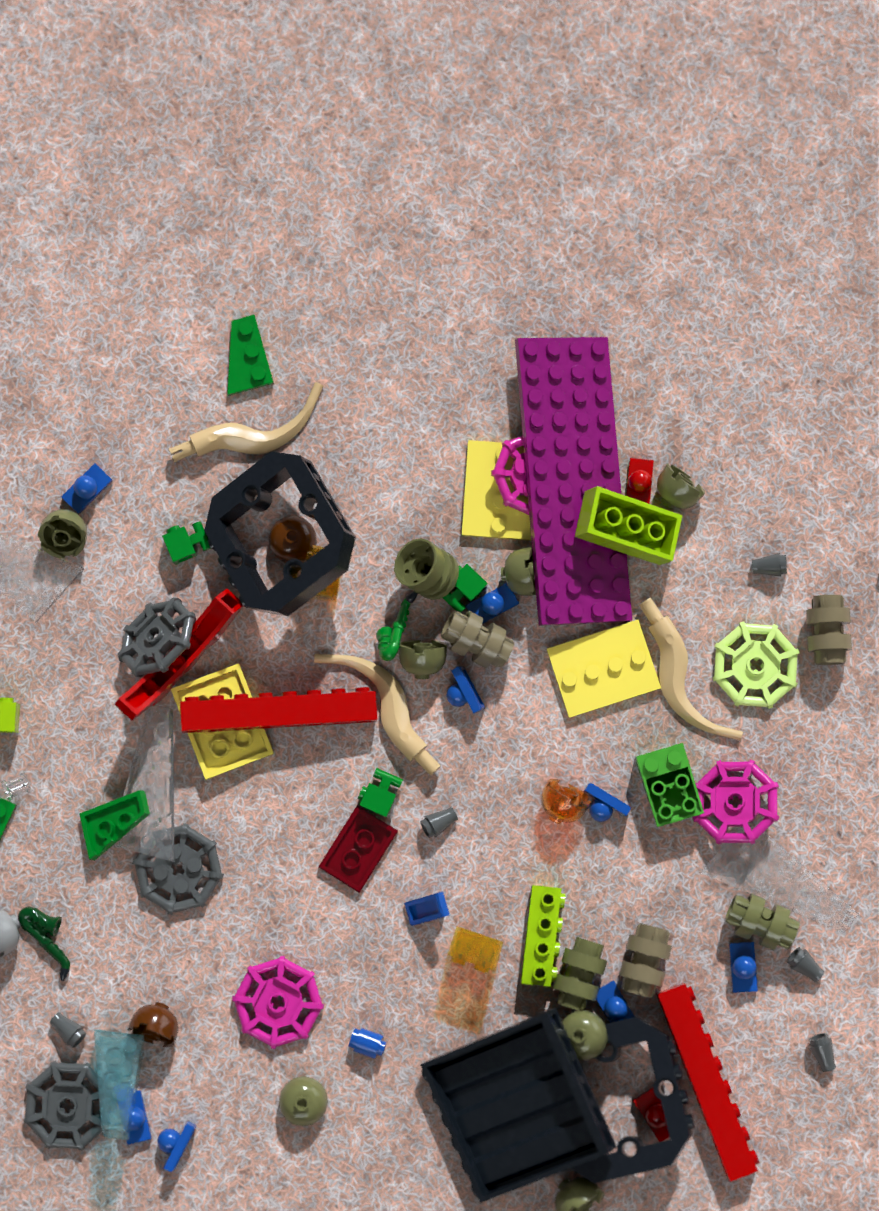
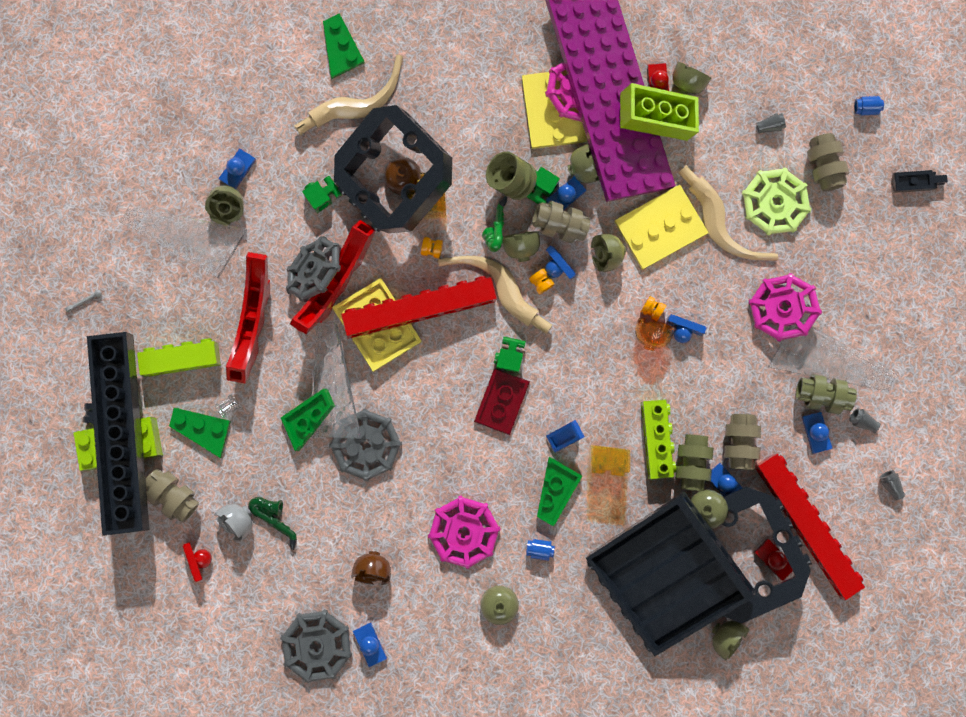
camera: 10 degrees left, 0 degrees up
(67, 685) = (251, 319): none -> red arch
(68, 1030) = (305, 587): dark grey cone -> none
(118, 1072) = (351, 617): clear light blue wedge -> none
(172, 1142) = (403, 658): blue tile -> none
(305, 634) = (427, 246): none -> light orange wheel
(403, 974) = (556, 490): none -> green wing
(435, 703) = (541, 281): none -> light orange wheel
(437, 822) = (559, 368): dark grey cone -> none
(530, 688) = (608, 252): none -> olive cylinder
(566, 766) = (648, 308): none -> light orange wheel
(669, 784) = (731, 303): bright green slope -> none

